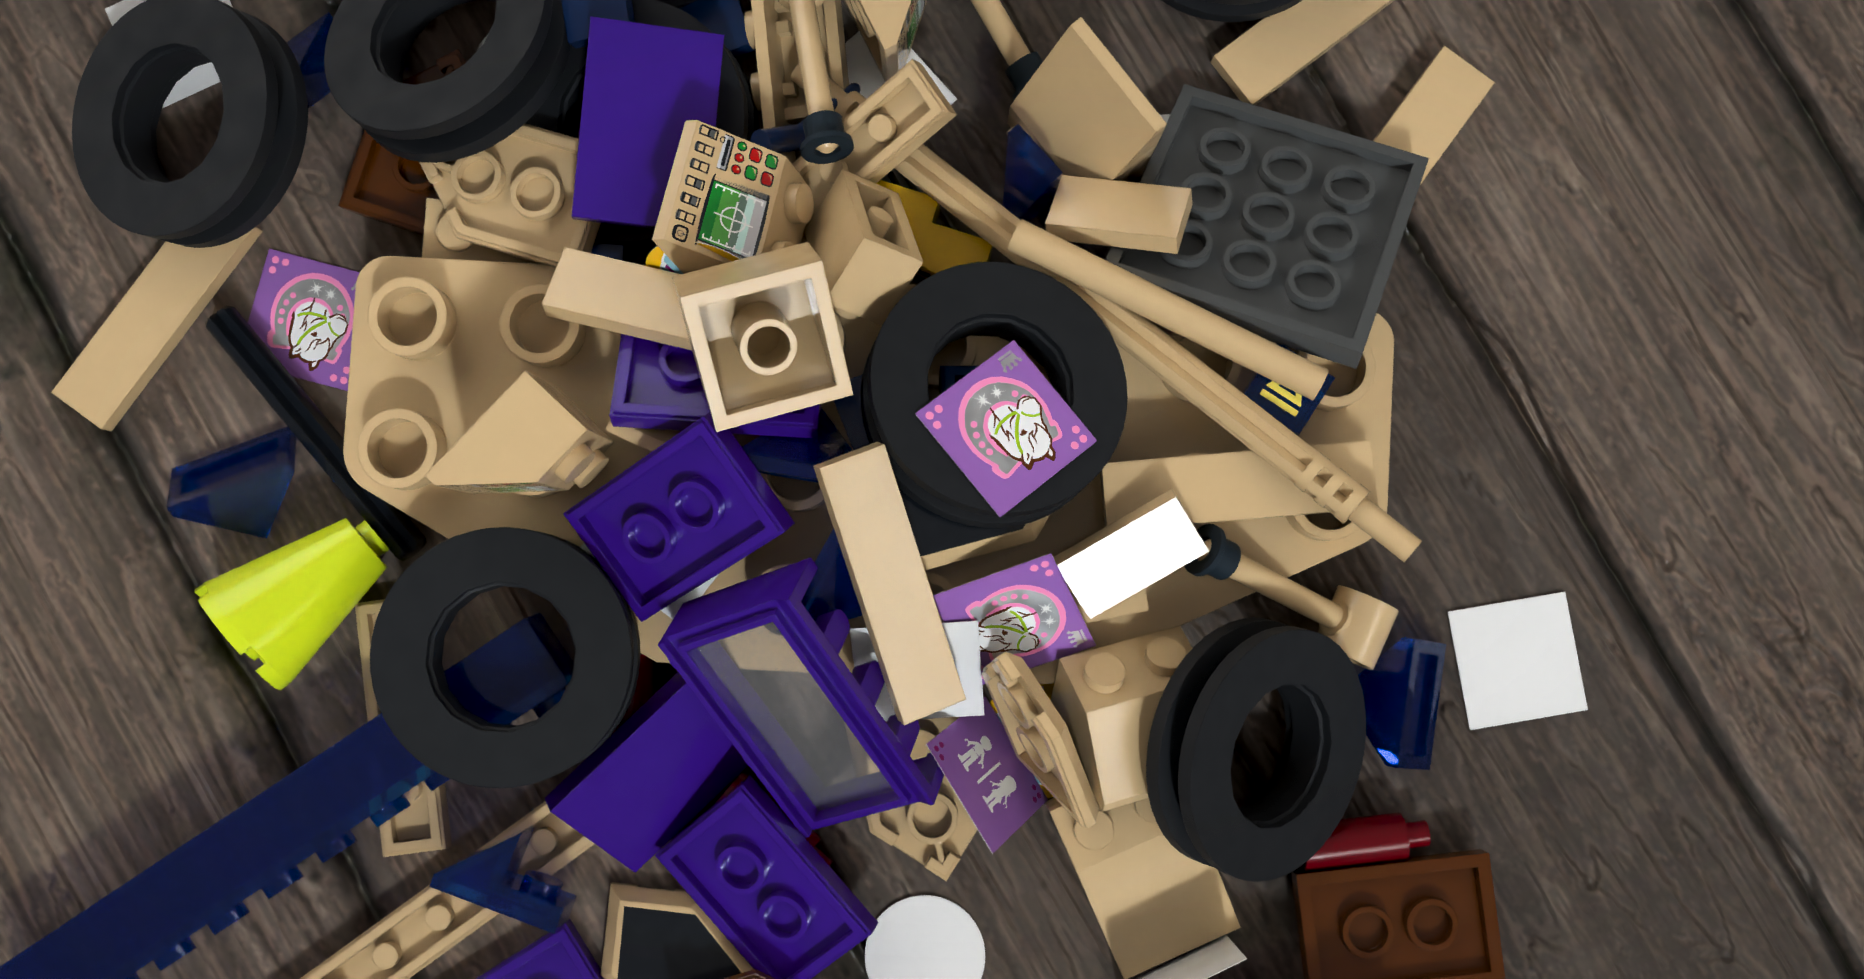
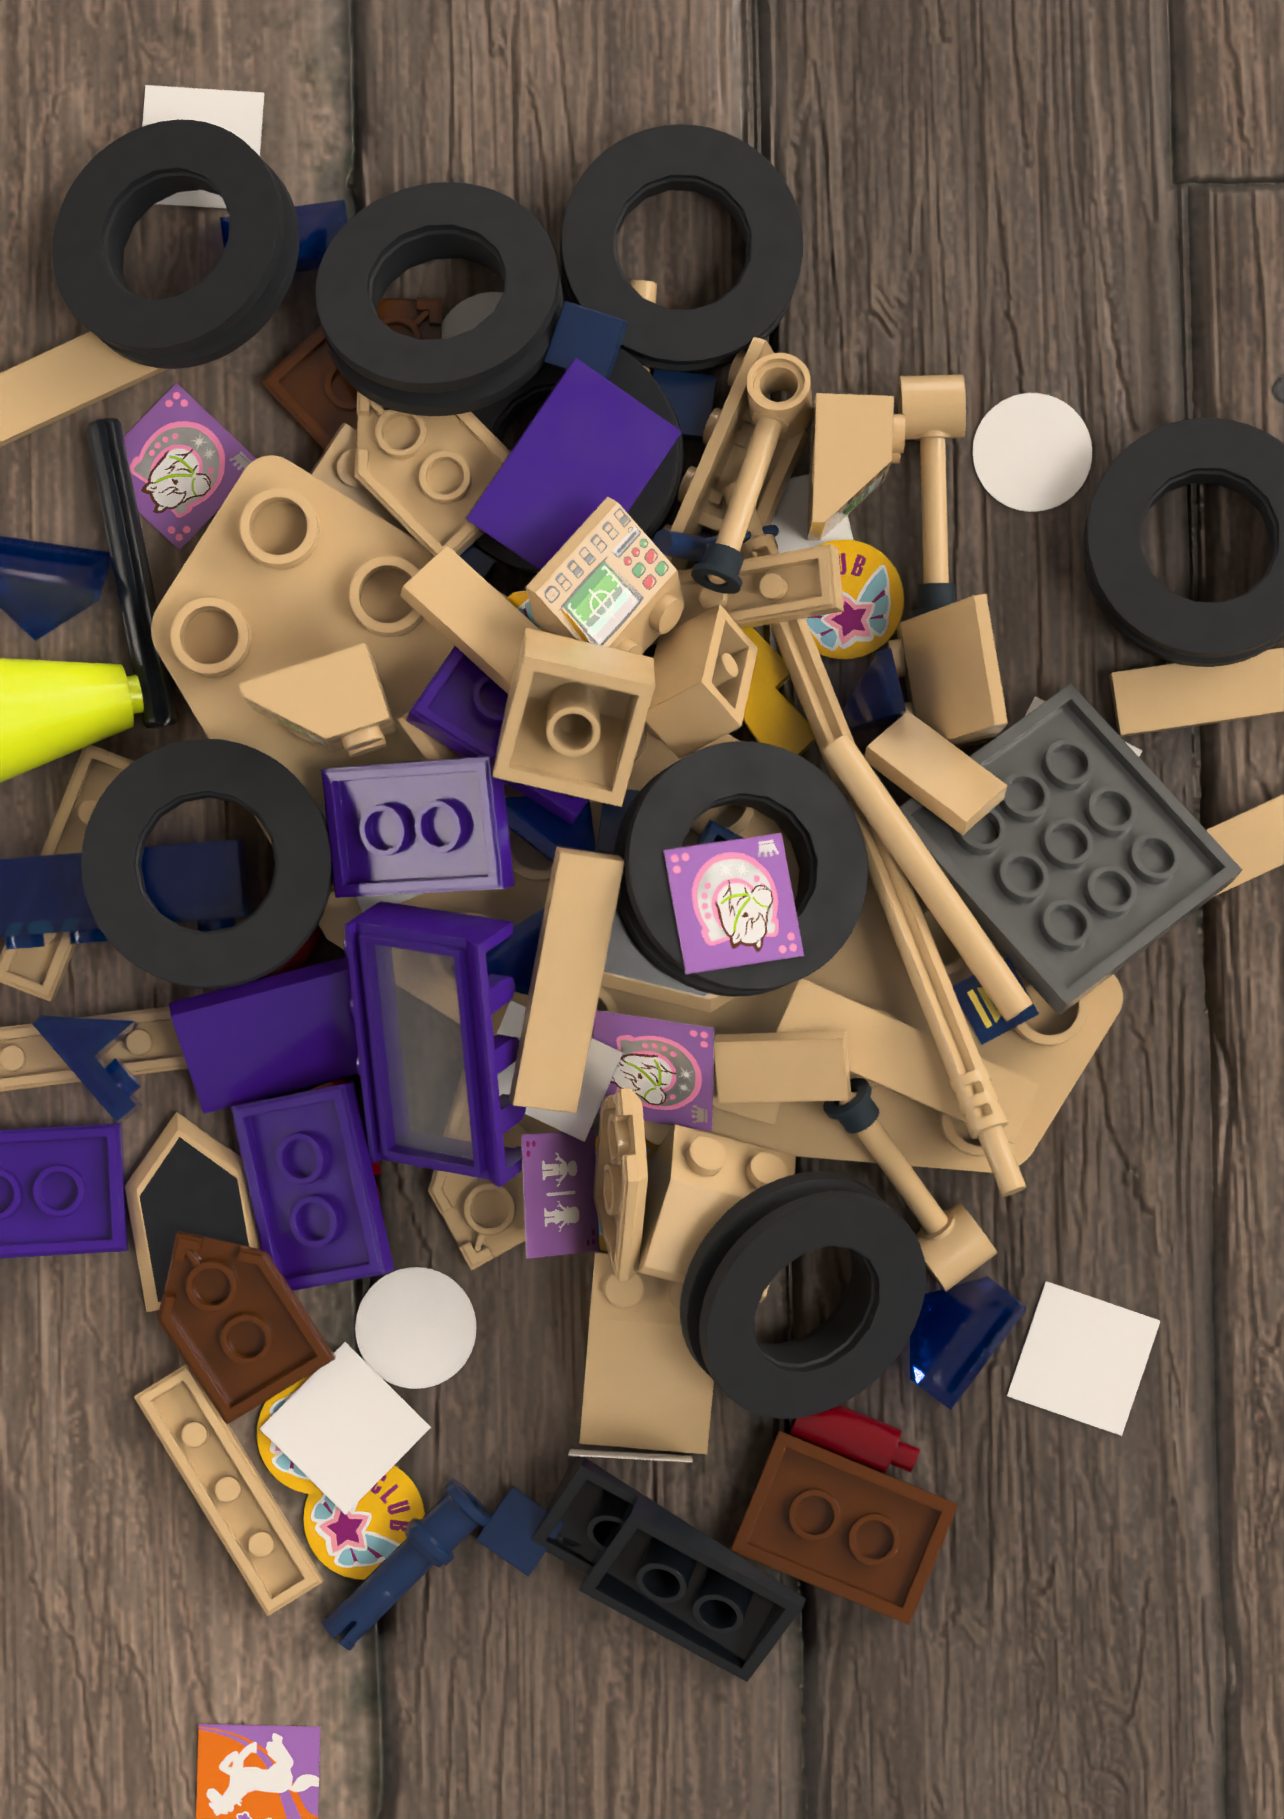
camera: 25 degrees right, 0 degrees up
(981, 119) = (870, 602): none -> sticker

